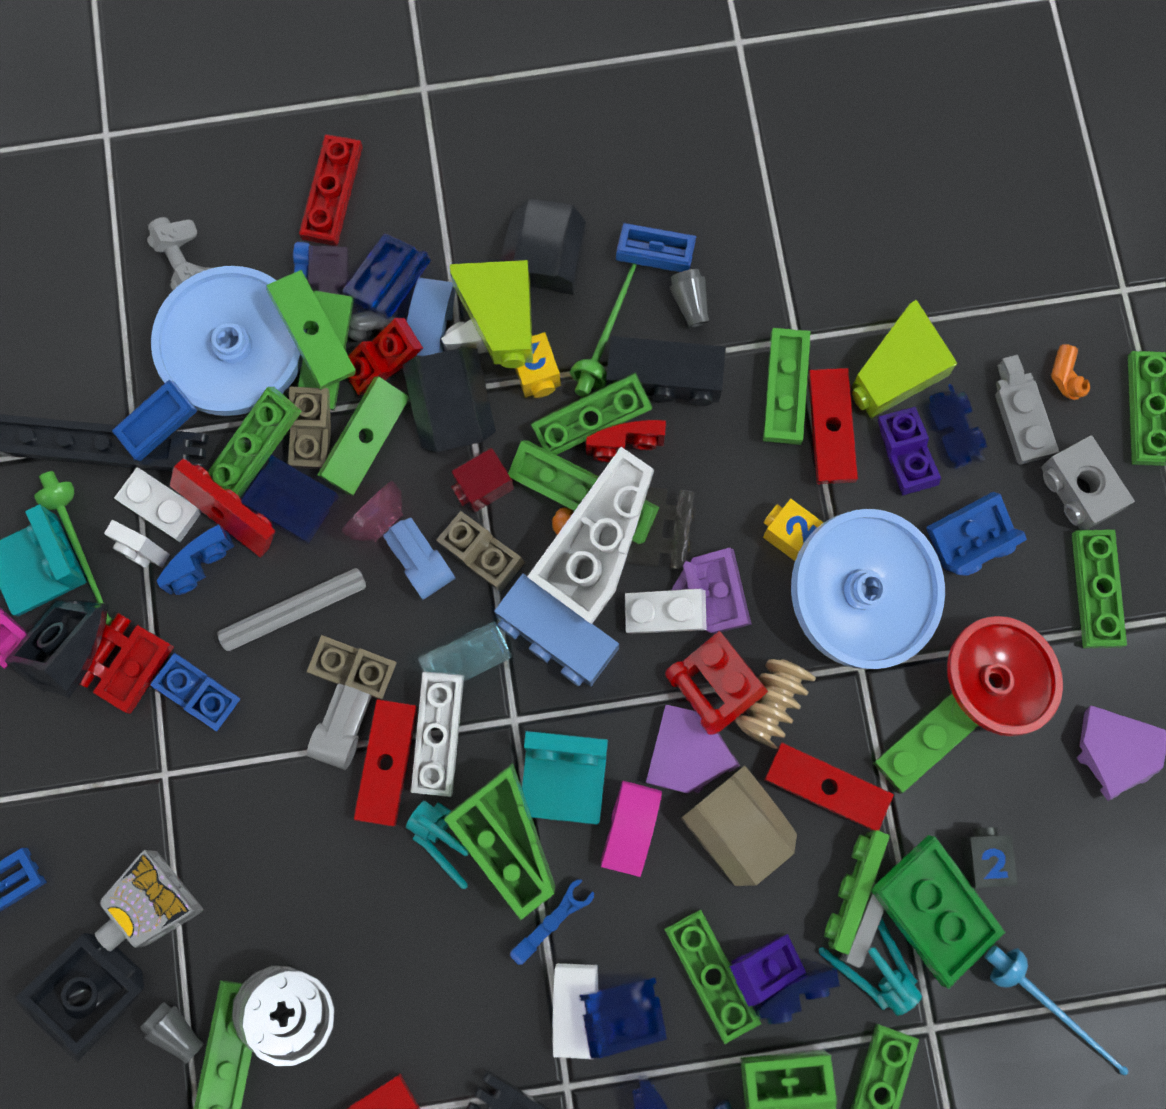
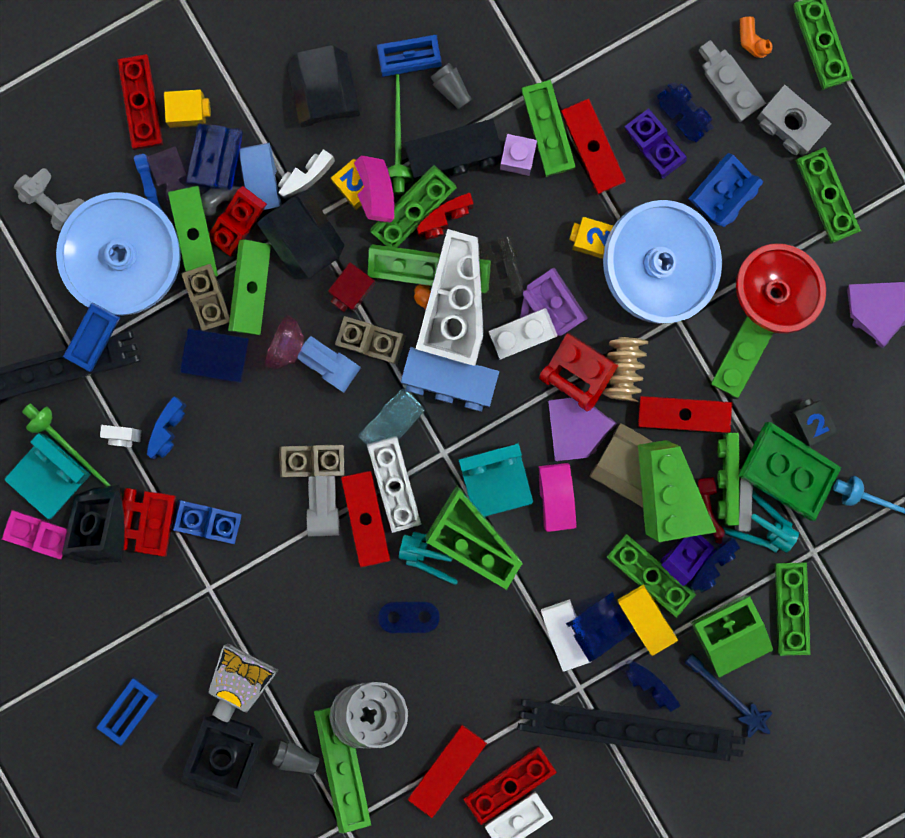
camera: 25 degrees left, 10 degrees up
(158, 504) = (117, 396): white plate -> none
(222, 507) = (169, 381): red tile -> none
(265, 429) = (174, 311): bright green tile -> none
(291, 609) = (250, 436): light grey axle -> none
(300, 311) = (166, 211): bright green tile -> none
(377, 211) = (186, 108): none -> yellow brick
(389, 908) = (409, 617): none -> clear blue plate
(499, 307) = (314, 155): lime slope -> none
(550, 923) = (525, 584): blue piece -> none
(556, 377) = (377, 193): none -> dark pink slope
(686, 1033) = (647, 620): none -> yellow slope
(739, 401) = (518, 154): none -> lavender brick
(775, 880) = (670, 494): none -> bright green wedge
(822, 891) = (707, 487): none -> dark red piece
(903, 363) = (628, 78): lime slope -> none

